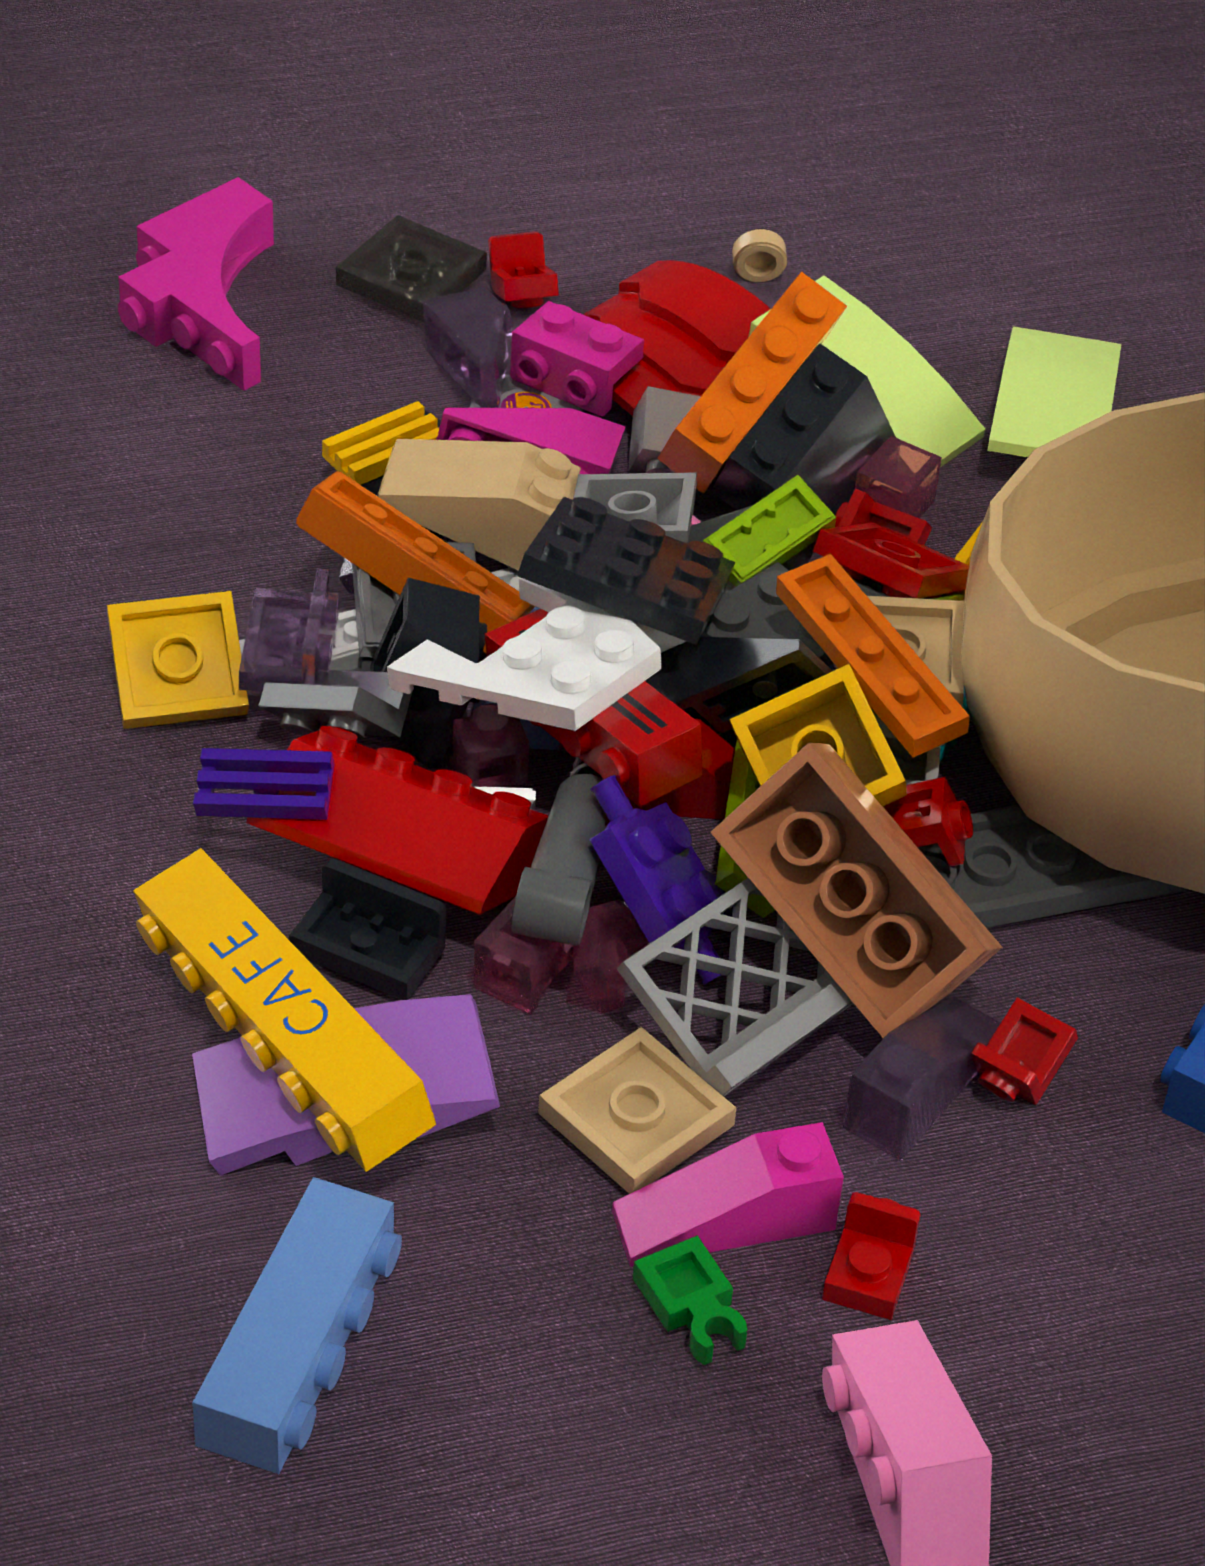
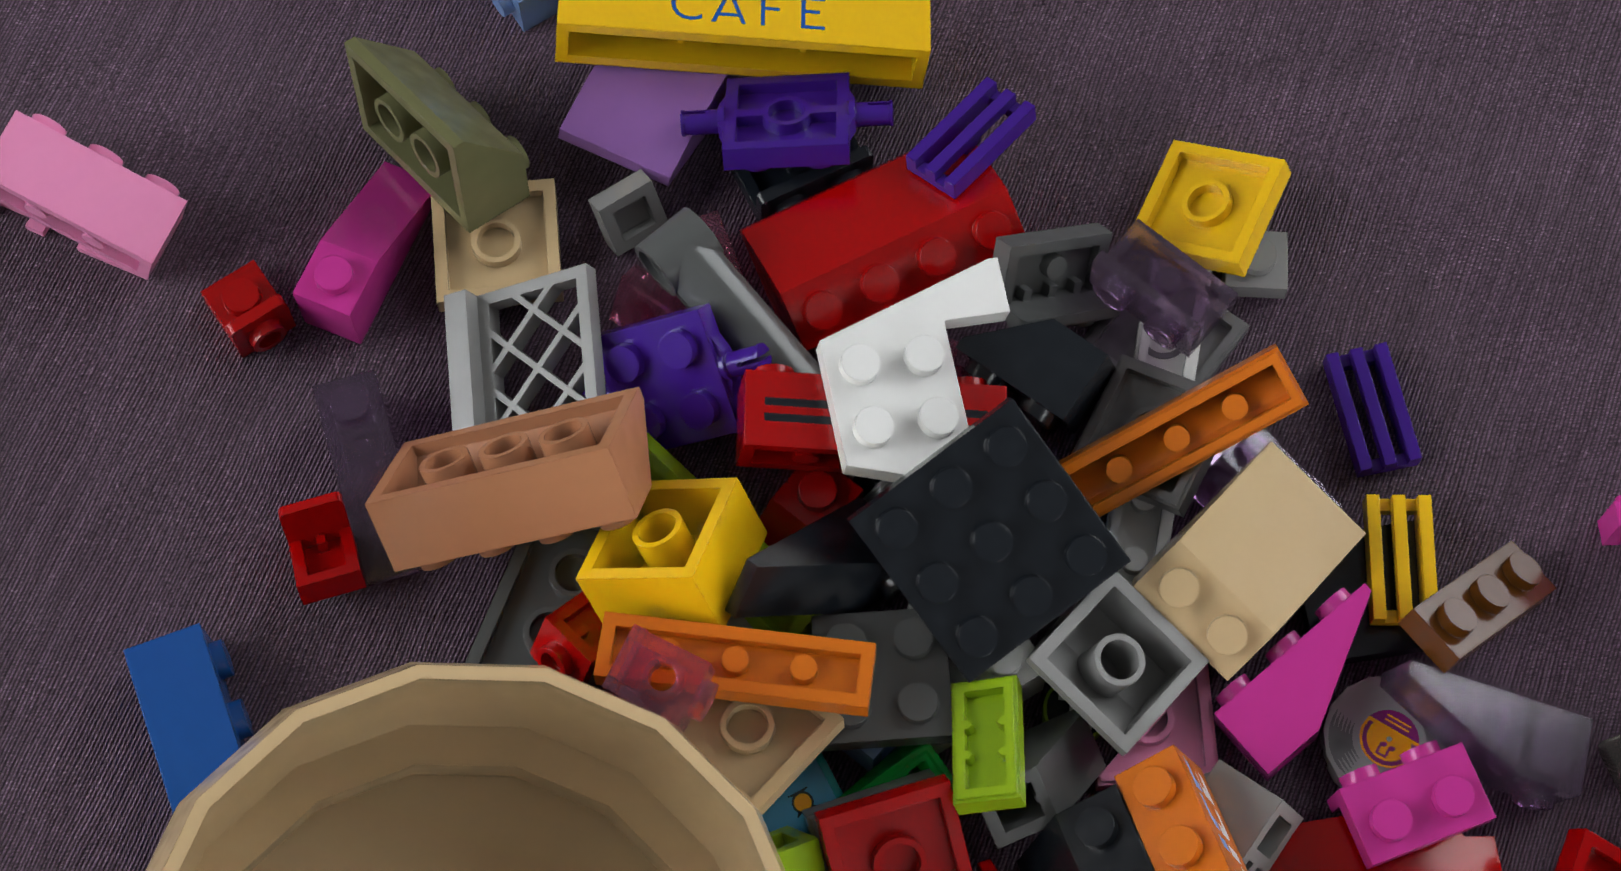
camera: 130 degrees right, 25 degrees up
(258, 518) = (1394, 400): none -> dark purple tile
(353, 921) = (787, 121): none -> dark purple plate
(391, 378) = (1477, 606): none -> reddish brown plate
(520, 1029) = (628, 212): none -> light grey plate
(586, 1170) = (437, 133): none -> olive slope
(691, 1290) = (320, 169): green plate -> none
(935, 634) = (632, 674): none -> clear pink brick

